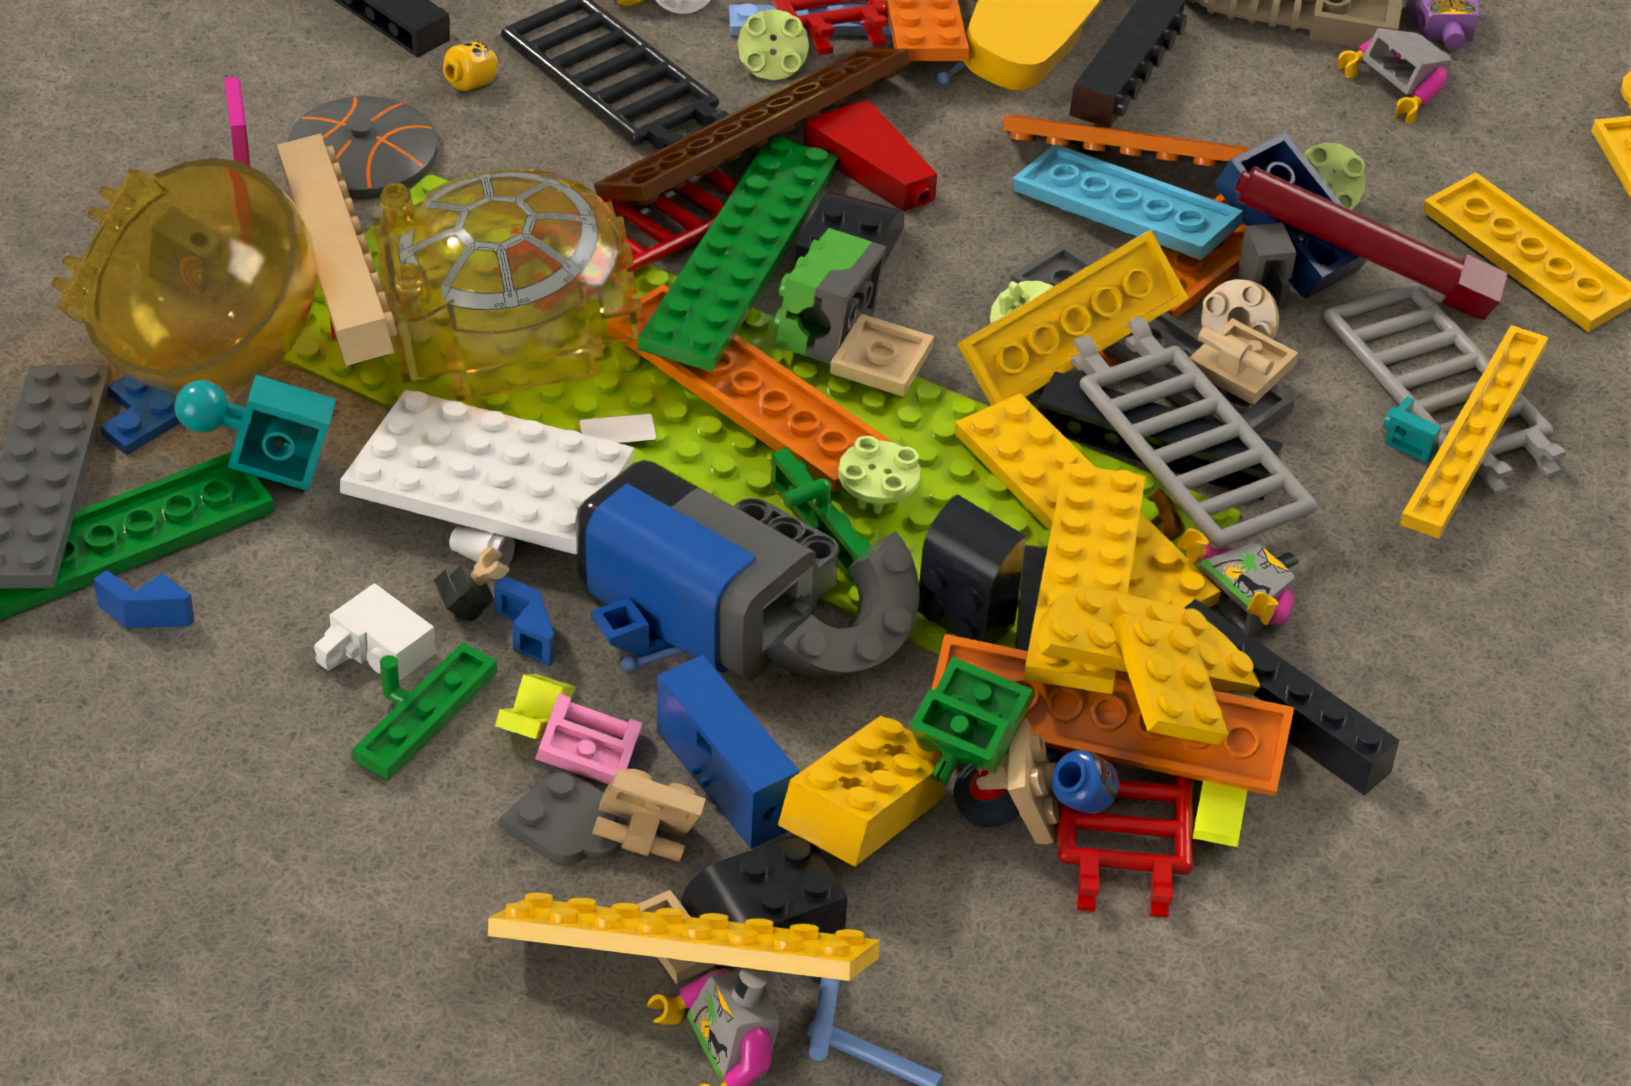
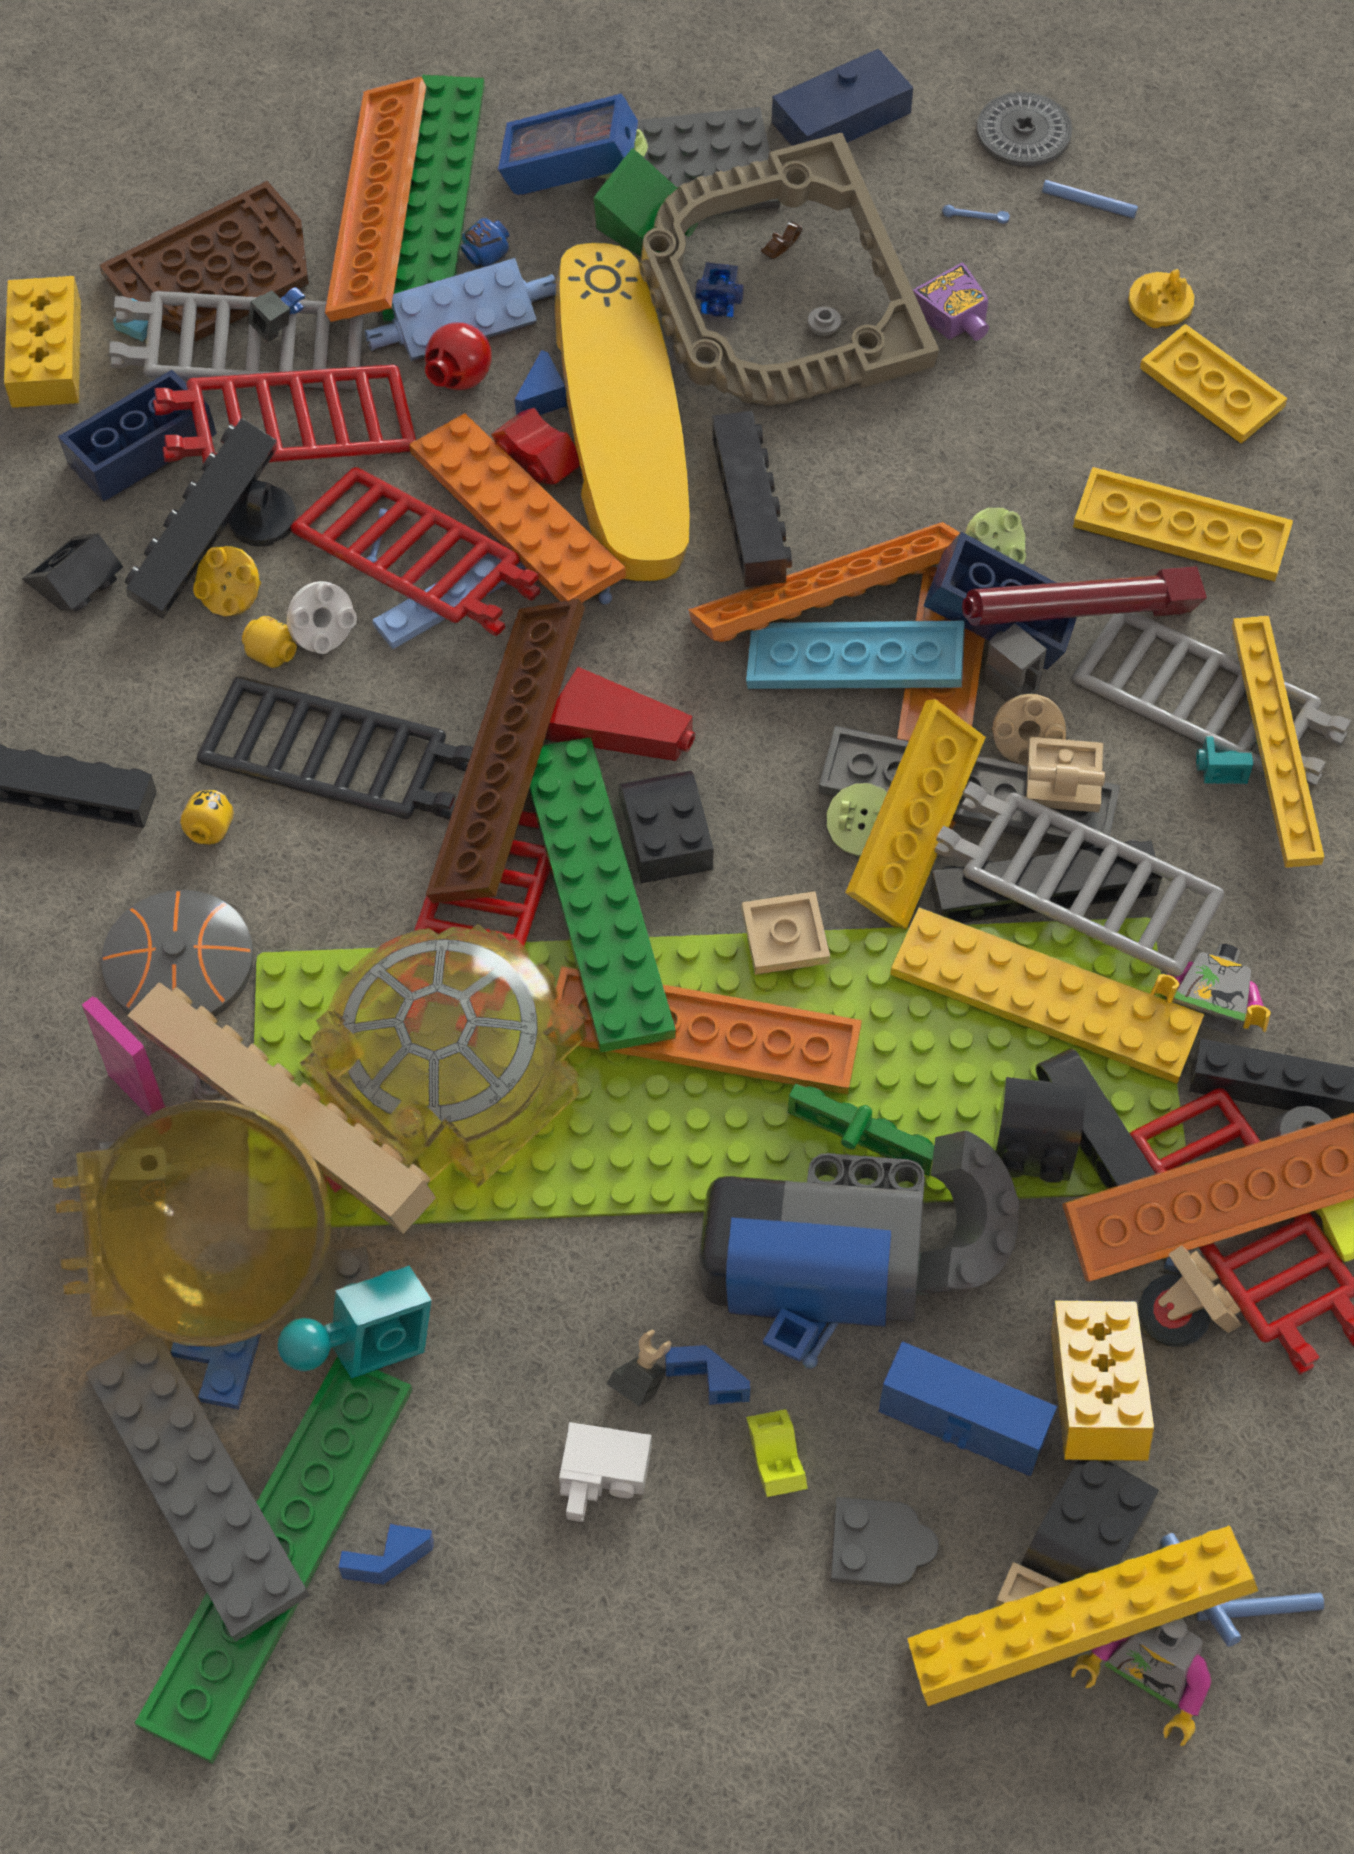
camera: 30 degrees left, 15 degrees up
(423, 710) = (692, 1513): green plate -> none
(472, 542) = (612, 1320): white cone -> none
(483, 469) = (567, 1248): white plate -> none
(585, 749) = (848, 1472): bright pink plate -> none
(620, 428) = (628, 1134): white sticker -> none
(648, 808) = (948, 1506): tan plate -> none
(790, 46) = (465, 641): yellowish green plate -> none
(828, 294) = (710, 902): piece -> none
(879, 472) = (875, 1044): yellowish green plate -> none
(970, 717) = (1146, 1273): green plate -> none
(1085, 782) = (1253, 1271): blue head -> none
(1087, 546) = (1123, 1077): yellow plate -> none
(1165, 649) = (1239, 1117): yellow plate -> none
(1172, 522) = (1113, 961): reddish brown piece -> none
(1405, 61) = (965, 379): light grey torso -> none

